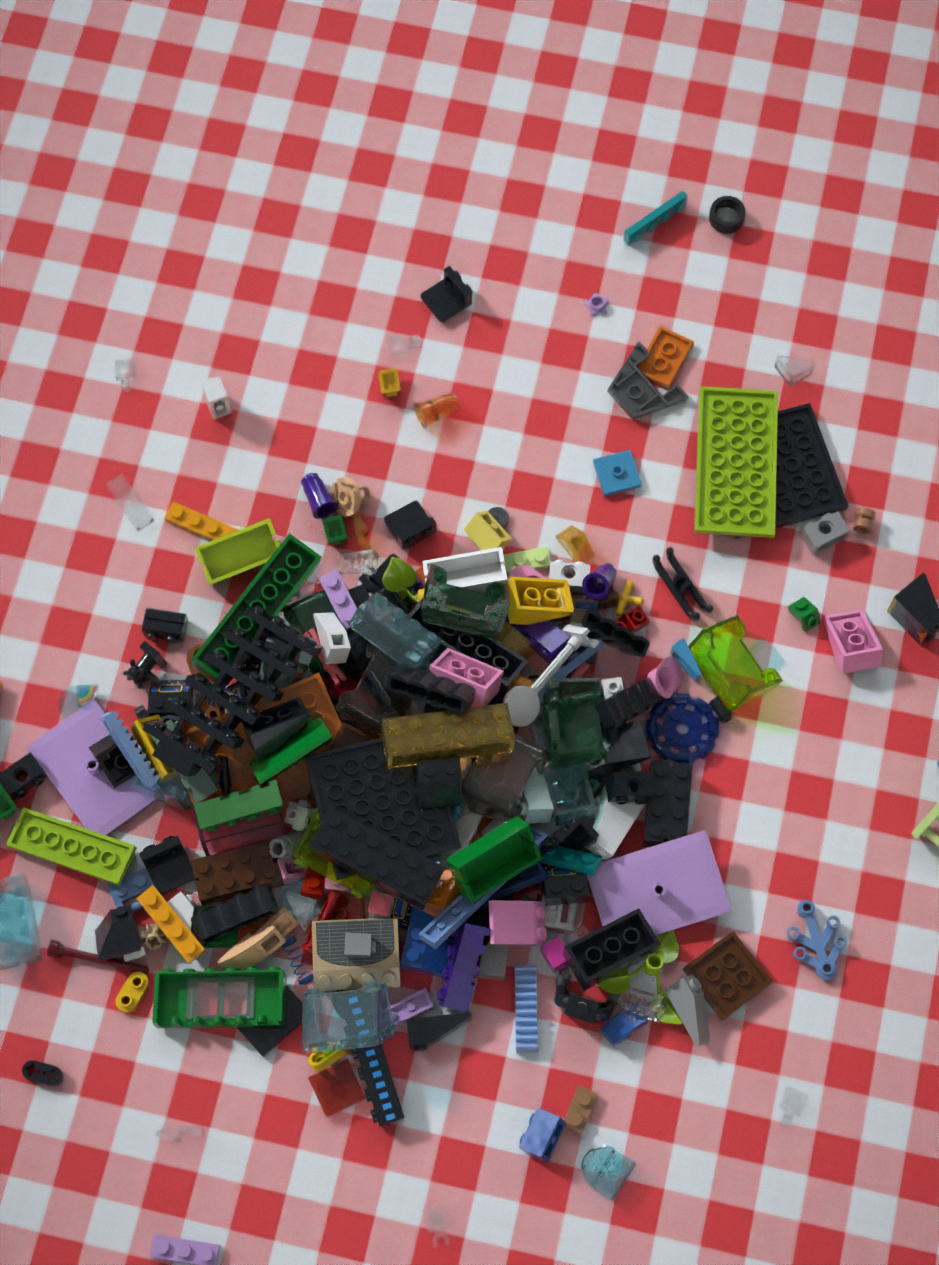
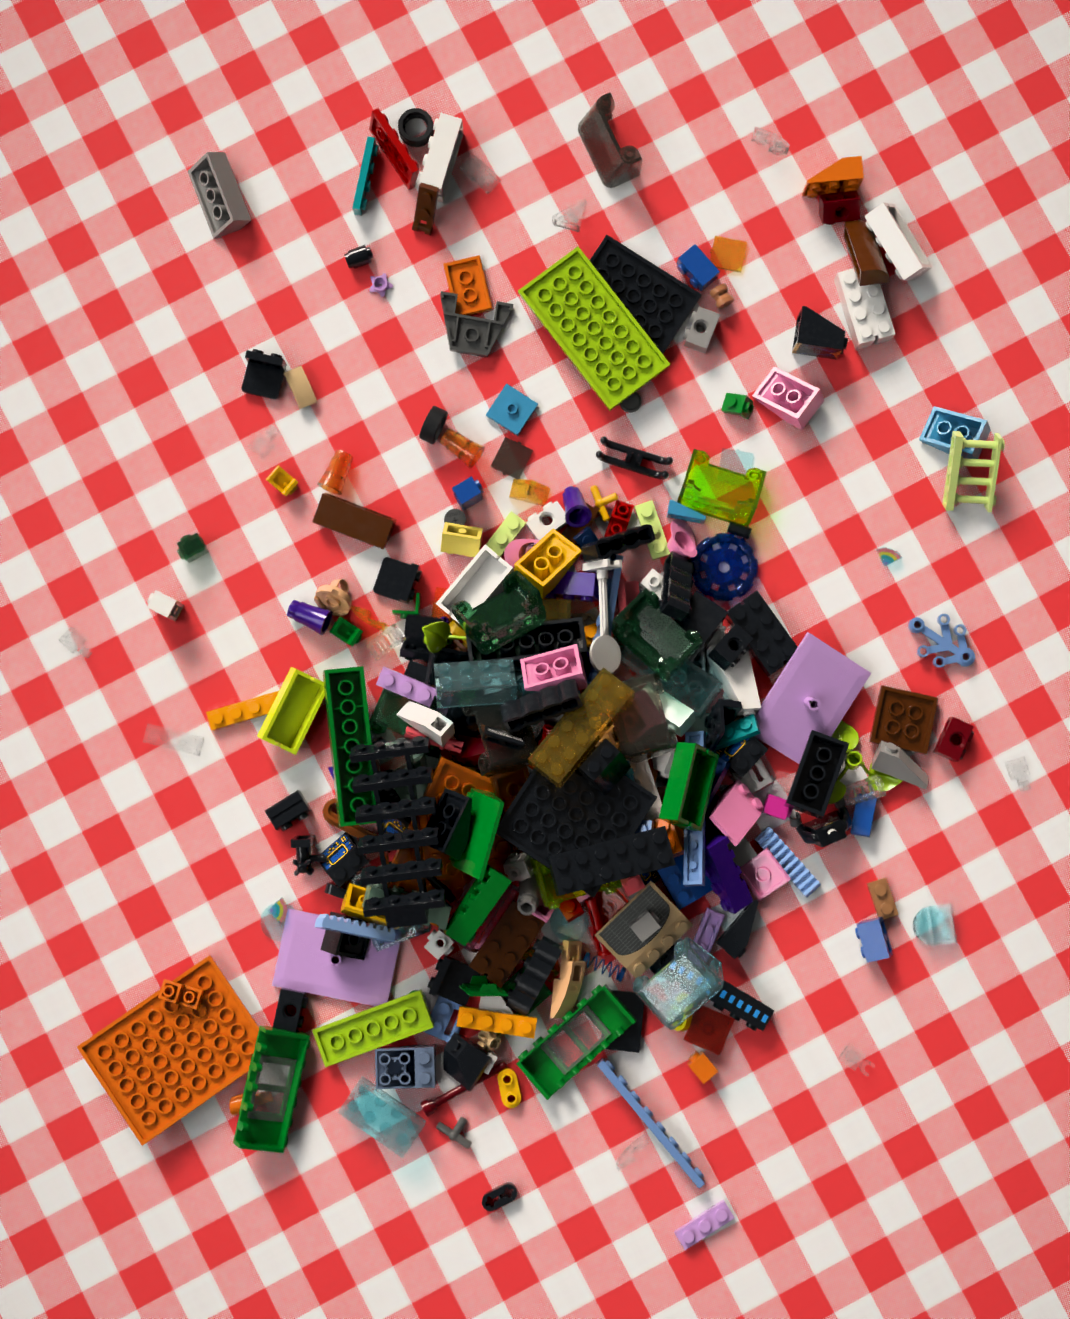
camera: 40 degrees left, 15 degrees up
(54, 989) = (454, 1134): none -> dark grey piece
(67, 899) = (405, 1067): none -> sand blue slope
(183, 825) = (433, 947): none -> white brick
(187, 886) = (480, 987): none -> green piece
(219, 1132) = (656, 1128): none -> medium blue plate
(276, 375) = (191, 547): none -> clear green brick
(303, 1113) = (702, 1066): none -> orange brick
(406, 557) = (403, 614): none -> green bracket
(417, 454) = (354, 520): none -> reddish brown brick
(466, 327) = (300, 387): none -> tan slope
(496, 999) = (764, 874): none -> bright pink plate
(524, 502) = (468, 493): none -> blue brick
(532, 147) = (219, 194): none -> light grey slope
(543, 432) = (433, 424): none -> black tyre
(551, 467) = (462, 447): none -> clear orange plant
(584, 509) = (511, 458): none -> clear smoke piece
(598, 270) = (358, 256): none -> black brick
(643, 665) = (647, 515): none -> yellowish green plate
(681, 273) = (425, 208): none -> reddish brown plate
(695, 216) = (393, 148): none -> red plate
(718, 543) = (632, 403): none -> dark grey piece
(726, 247) = (442, 153): none -> white piece
(748, 284) = (480, 173): none -> clear slope
(766, 1019) = (944, 745): none -> dark red brick
(830, 833) = (888, 555): none -> clear light blue tile
(863, 356) = (611, 163): none -> clear smoke windscreen
(863, 484) = (697, 268): none -> blue brick
(898, 495) = (728, 253): none -> clear yellow piece

